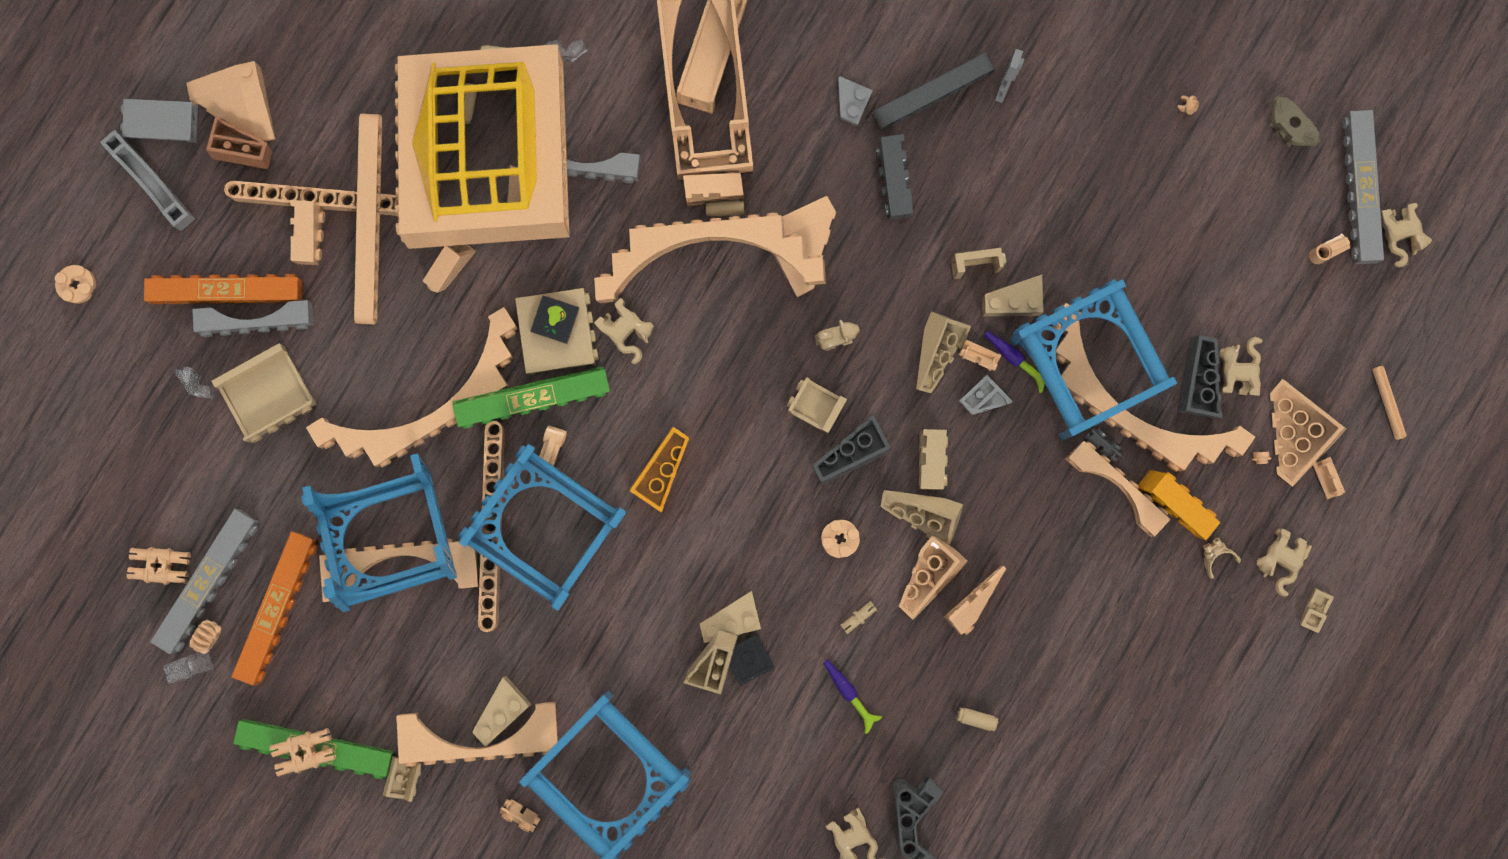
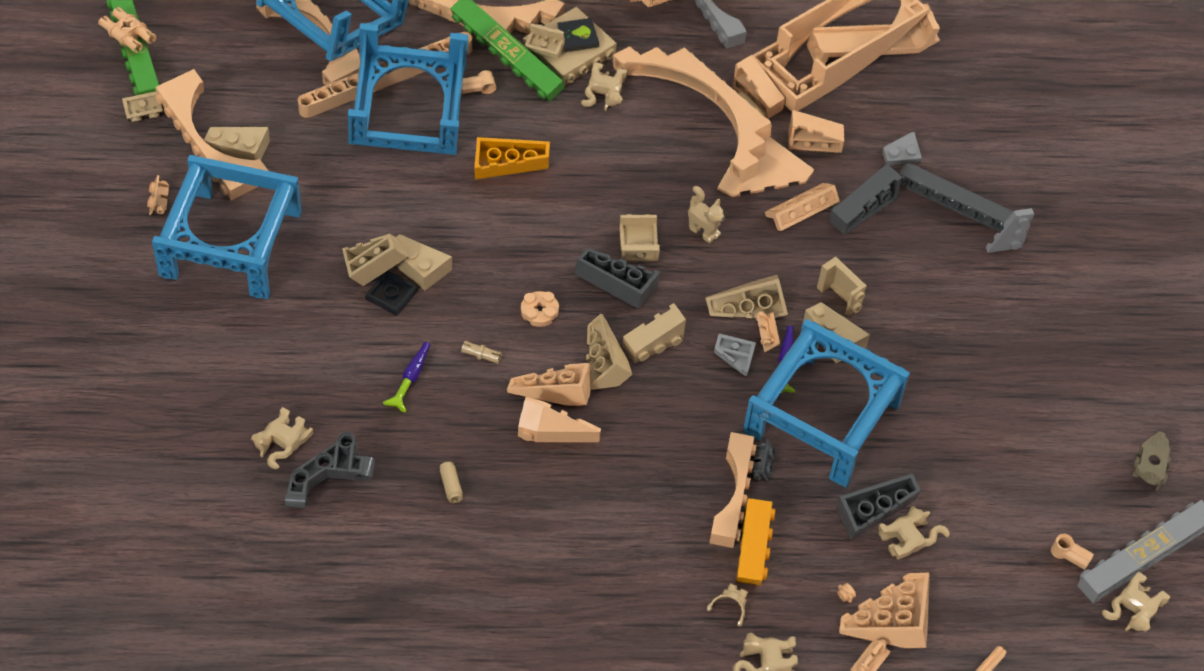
camera: 55 degrees right, 30 degrees down
(550, 360) = (545, 41): none -> tan bracket
(794, 170) = (814, 133): none -> light nougat wedge
(865, 233) = (803, 206): none -> light nougat fence
(1165, 445) = (801, 515): light nougat arch -> none
(1191, 105) = (1101, 382): light nougat plate -> none

